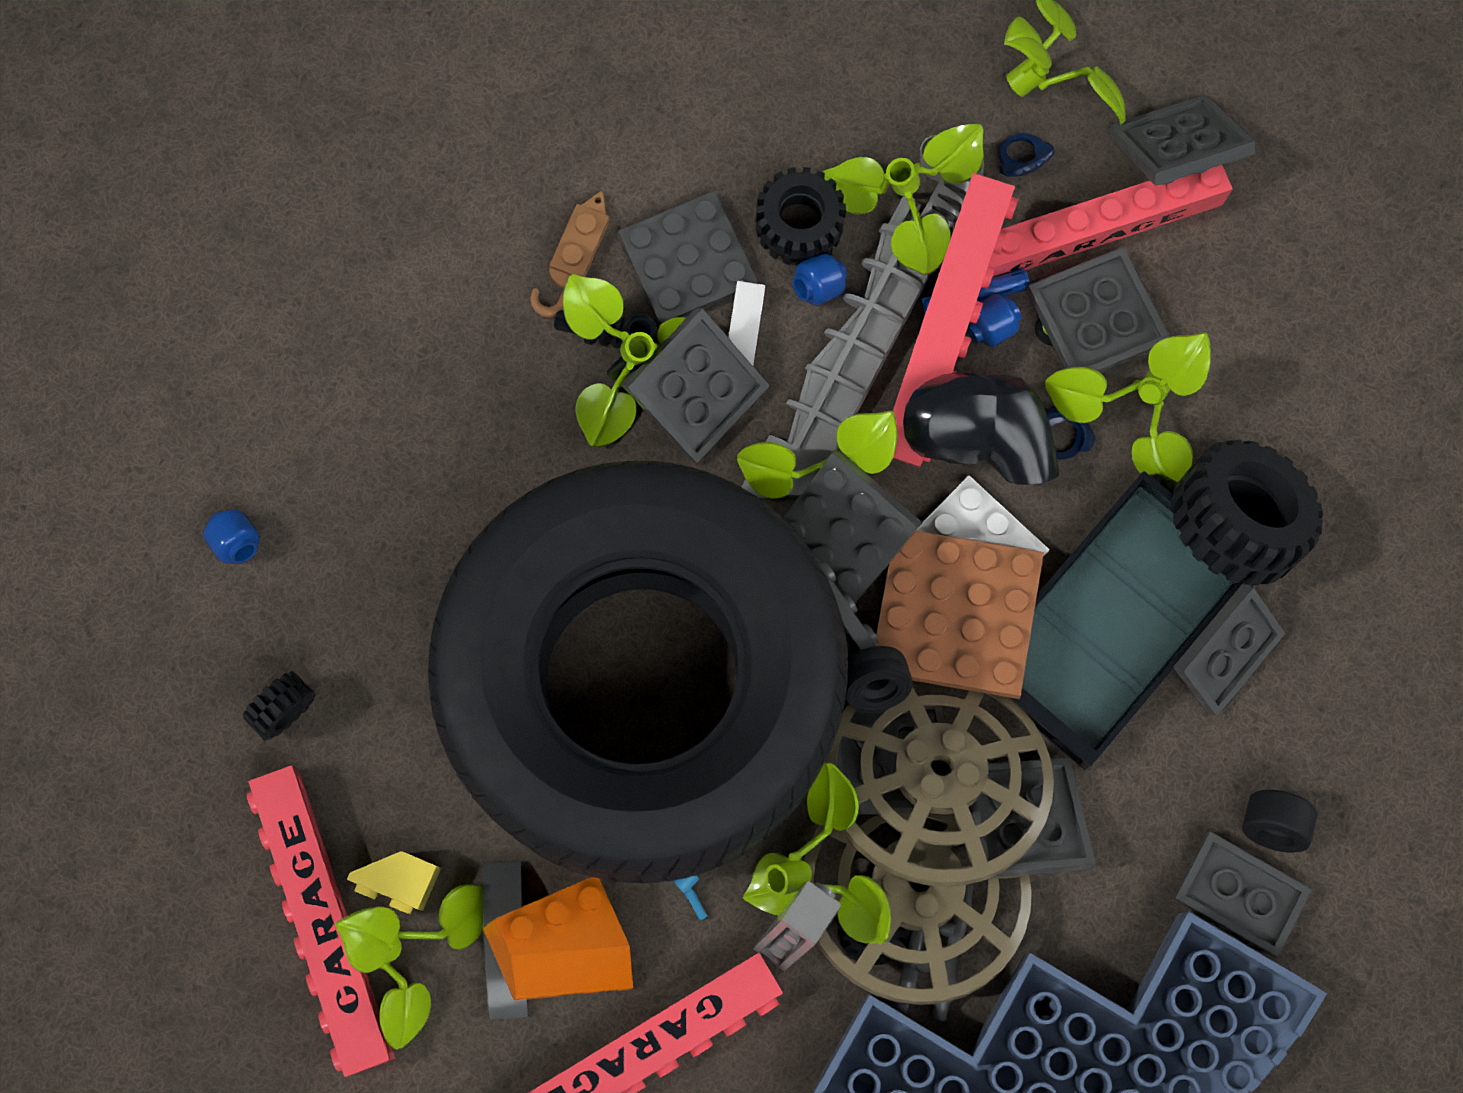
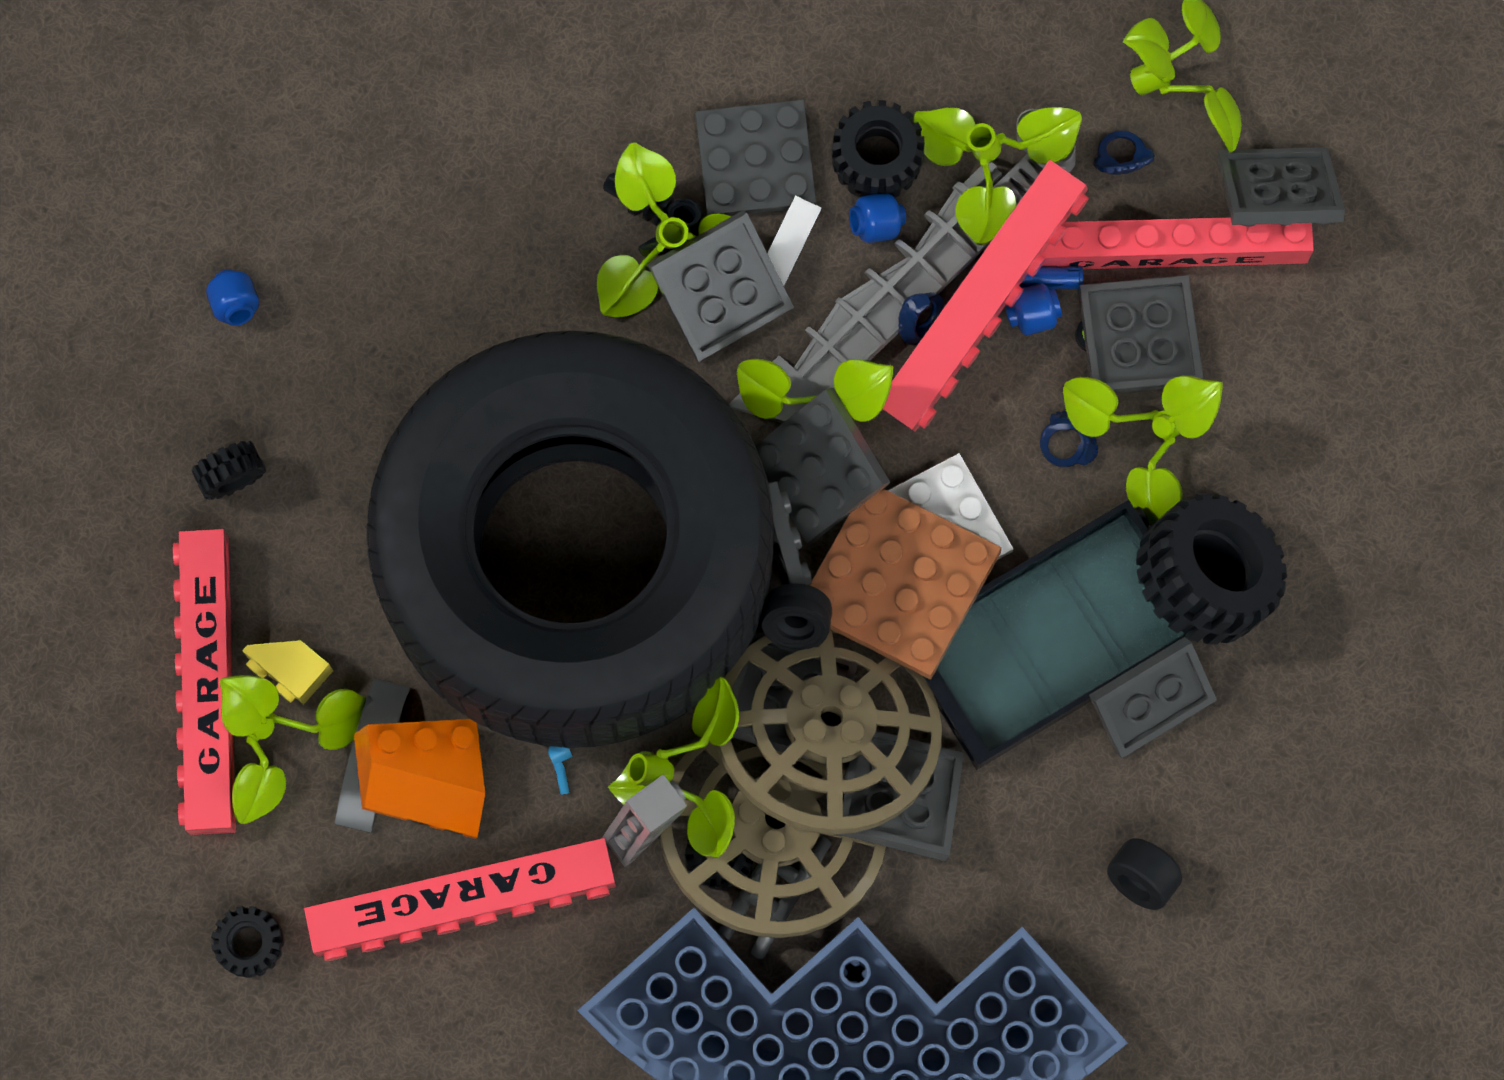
camera: 20 degrees right, 0 degrees up
(575, 249) = (649, 116): medium nougat plate -> none
(882, 359) = (910, 312): none -> dark blue piece
(982, 418) = (986, 401): black piece -> none
(1242, 894) = (1085, 932): dark grey plate -> none

